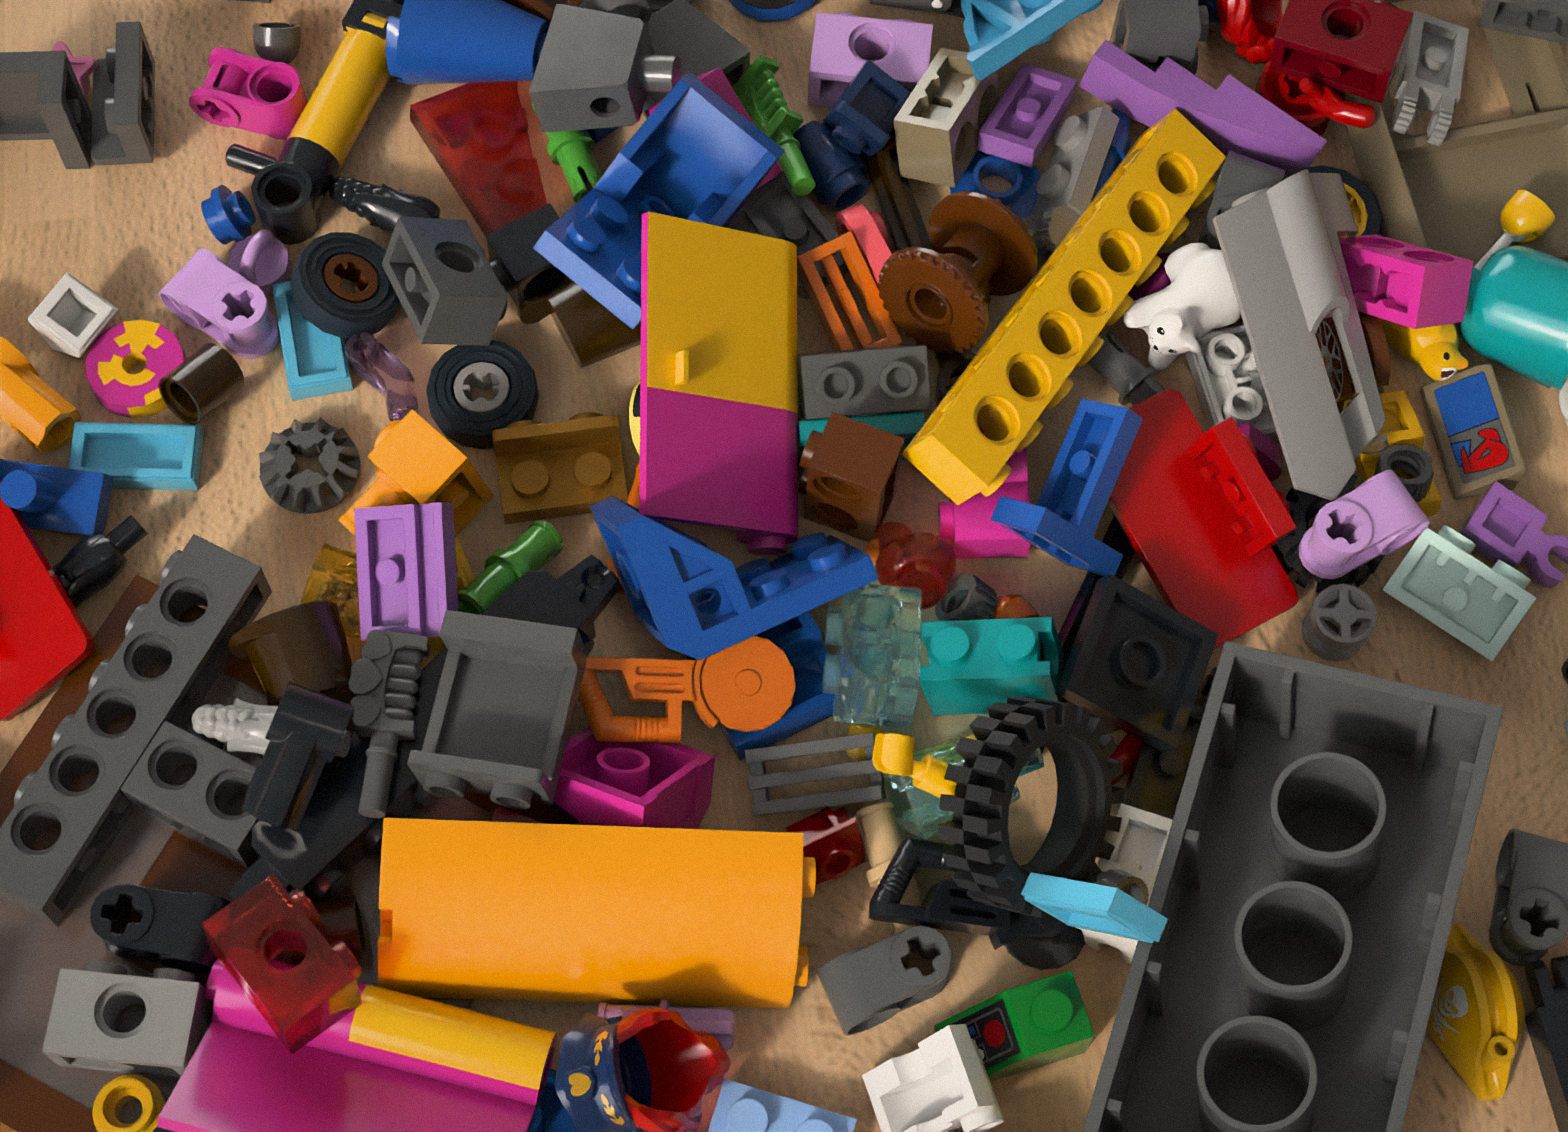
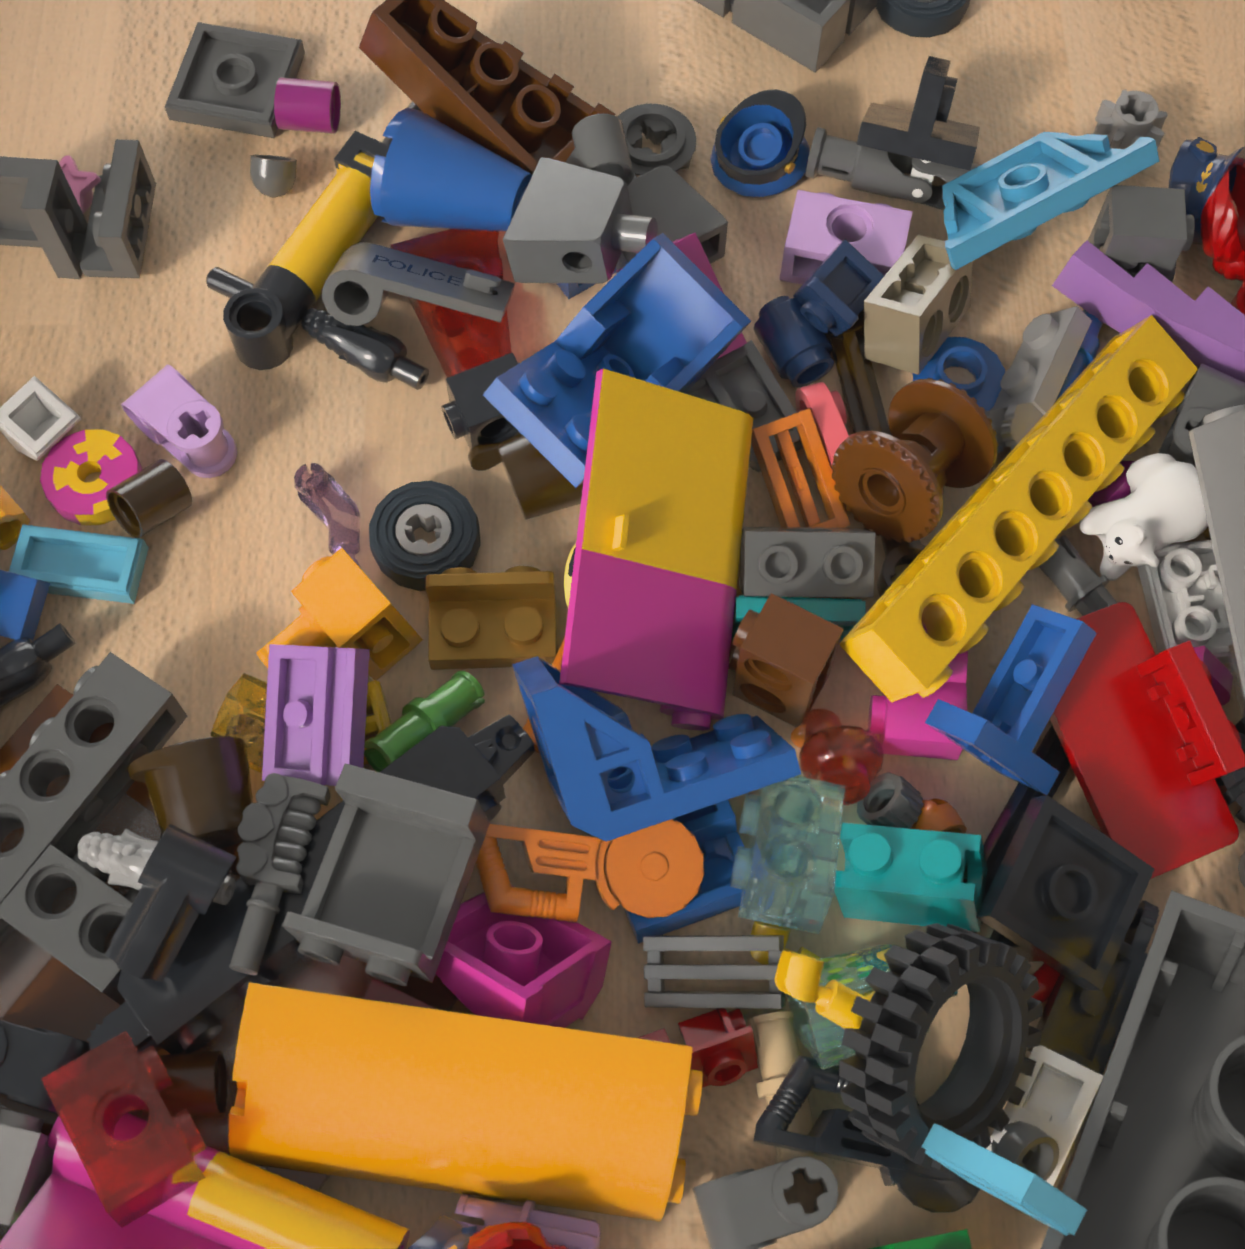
camera: 10 degrees right, 0 degrees up
(228, 215) = (201, 336): blue plate -> none
(245, 93) = (238, 220): dark pink piece -> none
(261, 260) = (227, 385): lavender tile -> none
(309, 490) = (238, 616): dark grey gear -> none
(312, 358) = (266, 462): medium azure tile -> none
(327, 305) = (284, 394): black bush -> none
(395, 134) = (371, 271): none -> dark grey door
(444, 281) = (399, 420): dark grey brick -> none
(574, 154) = (544, 307): bright green pin -> none
(770, 114) = (741, 284): bright green piece -> none
(1027, 115) = (997, 309): medium lavender plate -> none

